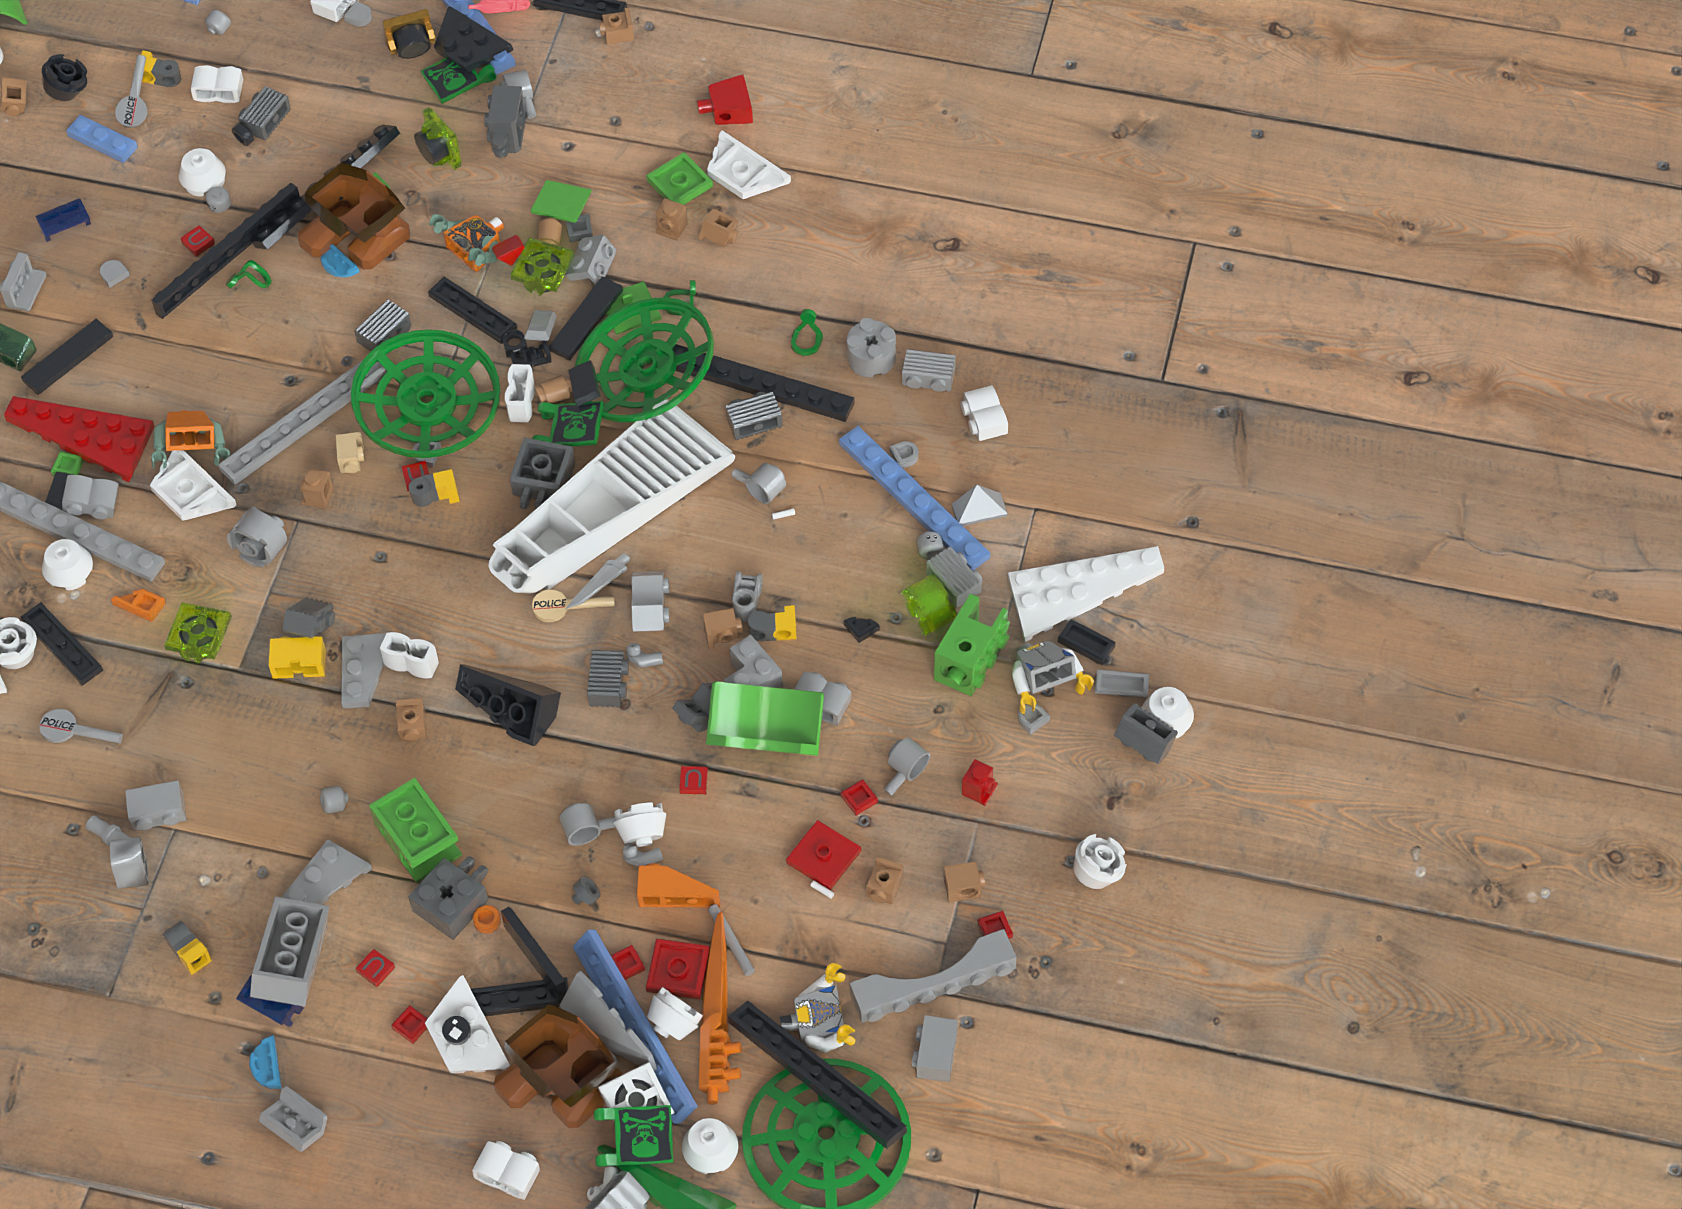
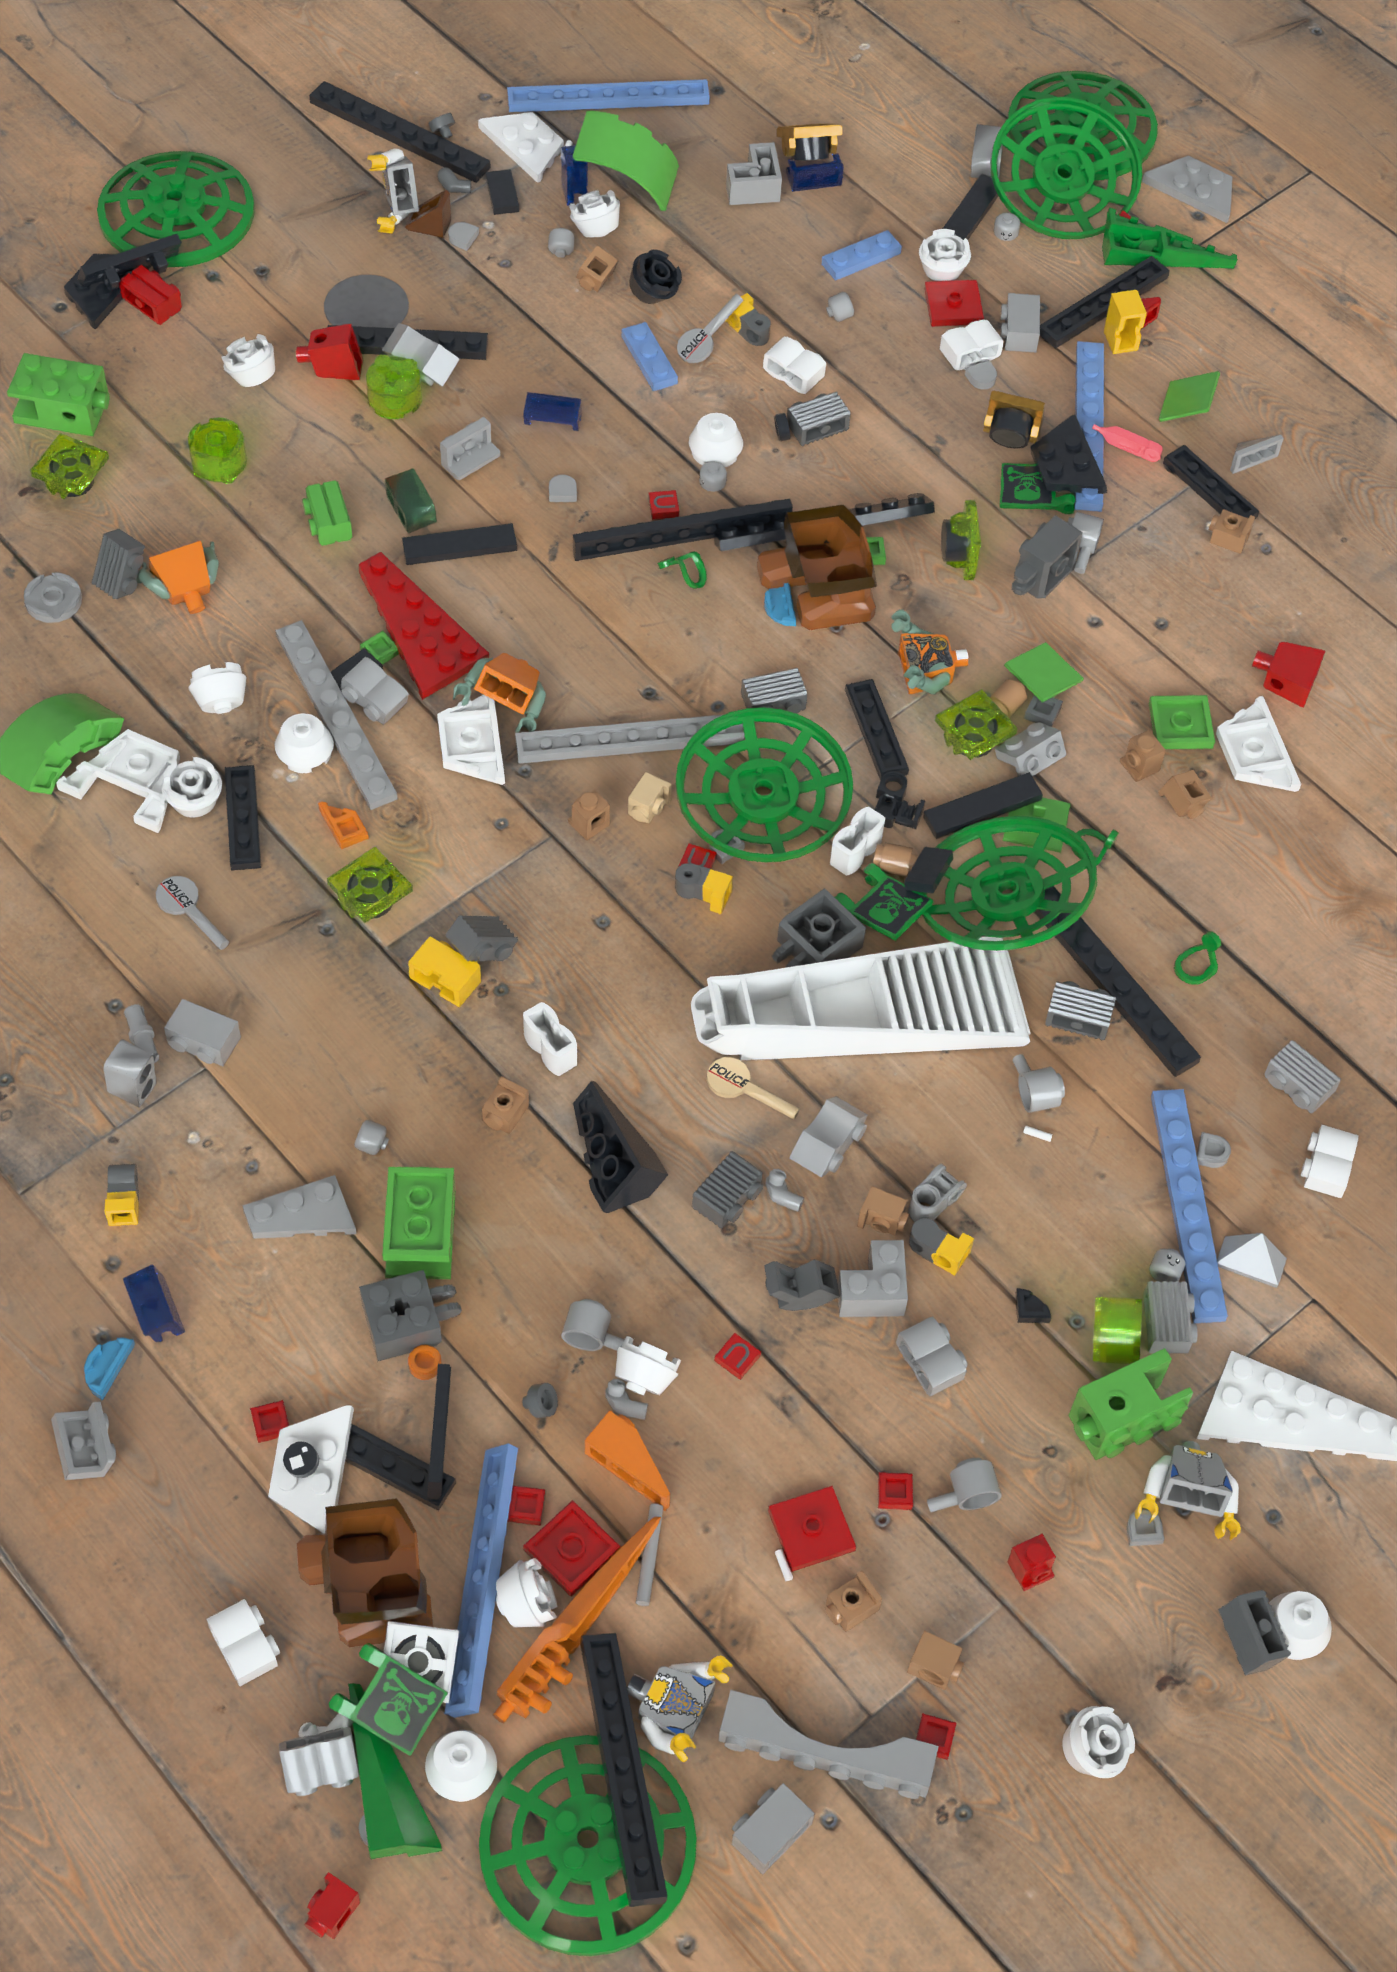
camera: 30 degrees right, 0 degrees up
(257, 537) = (495, 827): light grey brick -> none
(289, 951) = (203, 1265): light grey brick -> none
(360, 669) = (496, 1023): light grey wing -> none
(375, 968) = (281, 1338): red tile -> none
(509, 249) = (952, 689): red slope -> none
(540, 325) = (930, 785): light grey tile -> none
(586, 1002) = (444, 1549): light grey wedge -> none
(604, 576) = (805, 1082): light grey bar -> none
(765, 718) = (852, 1339): bright green panel -> none
(871, 348) = (1256, 1015): light grey brick -> none
(1086, 642) = (1264, 1483): black tile -> none
(1122, 683) = (1270, 1556): light grey tile -> none

